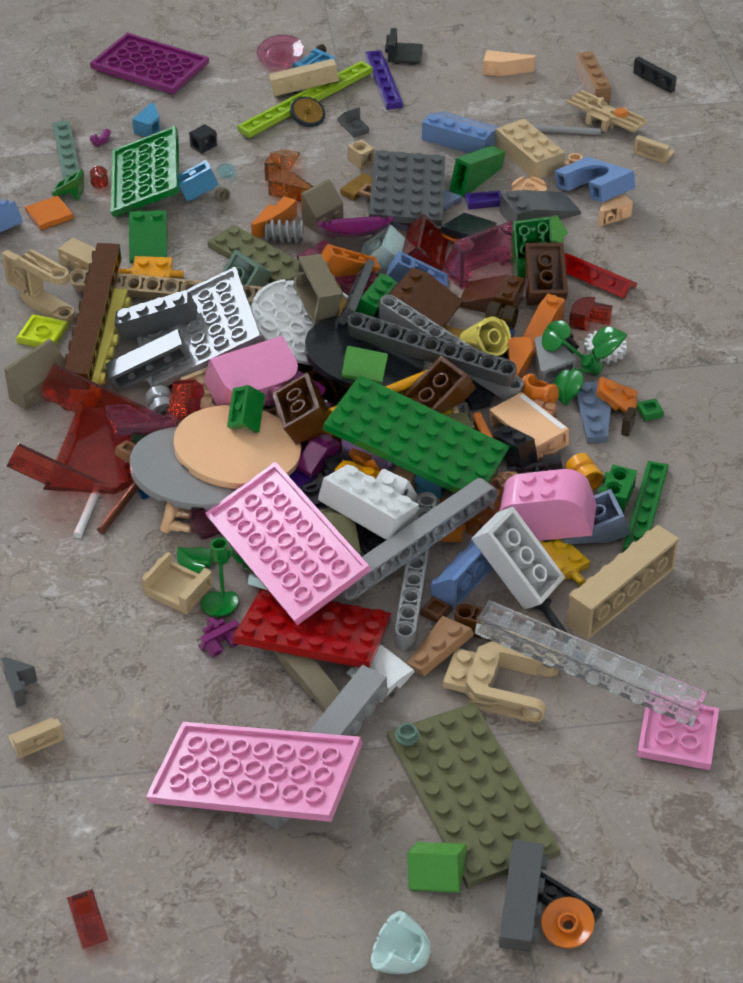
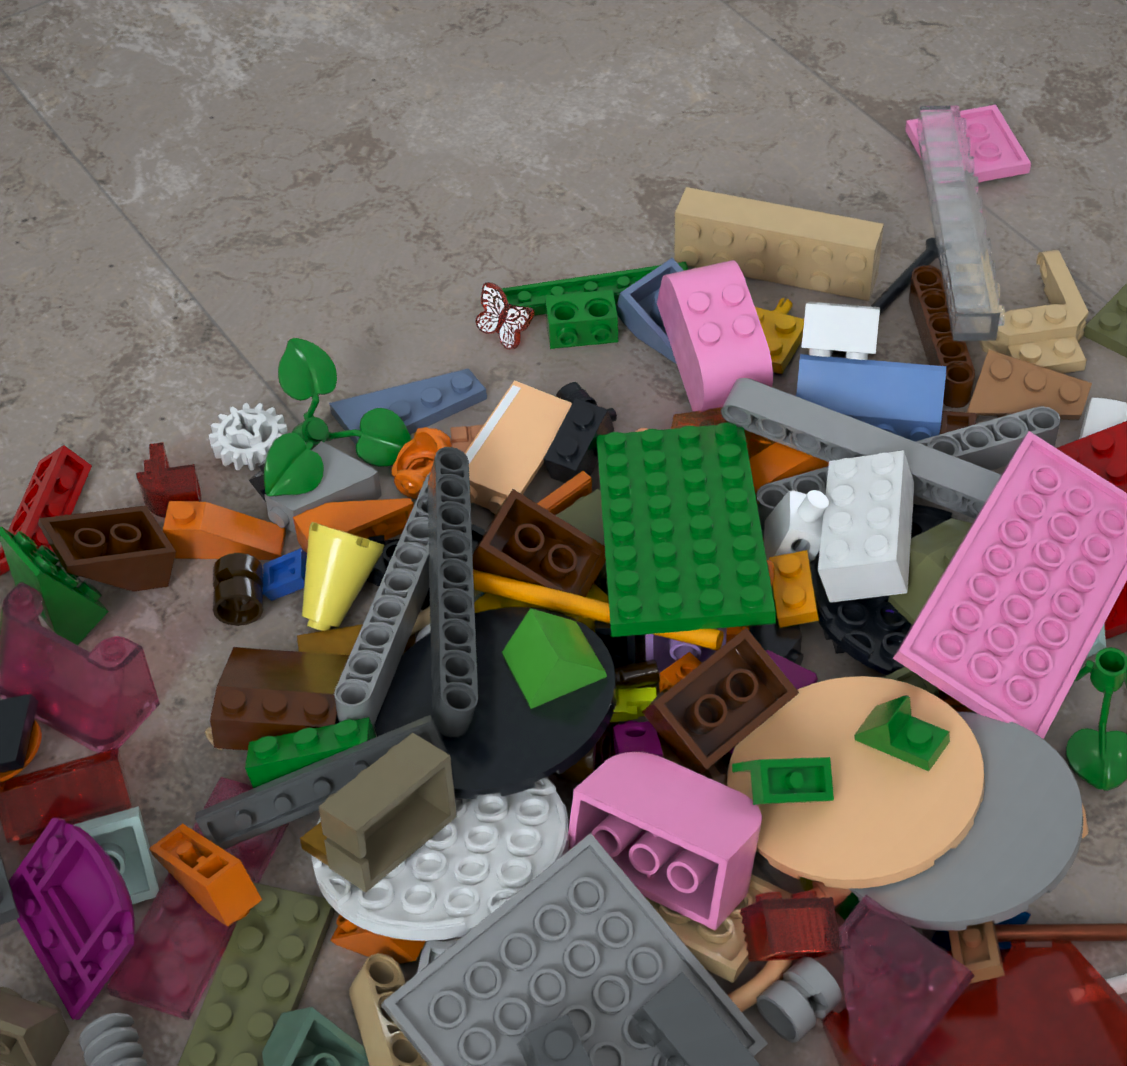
camera: 115 degrees left, 5 degrees up
(242, 458) = (901, 735): none -> green slope
(403, 263) = (164, 772): medium blue slope -> none
(502, 288) = (176, 628): reddish brown slope -> none
(584, 464) = (575, 357): light orange wheel -> none
(616, 395) = (372, 381): orange wing -> none
(628, 421) = (422, 353): dark brown tile -> none
(635, 460) = (502, 317): none -> clear red animal
(650, 409) = (377, 342): green plate -> none

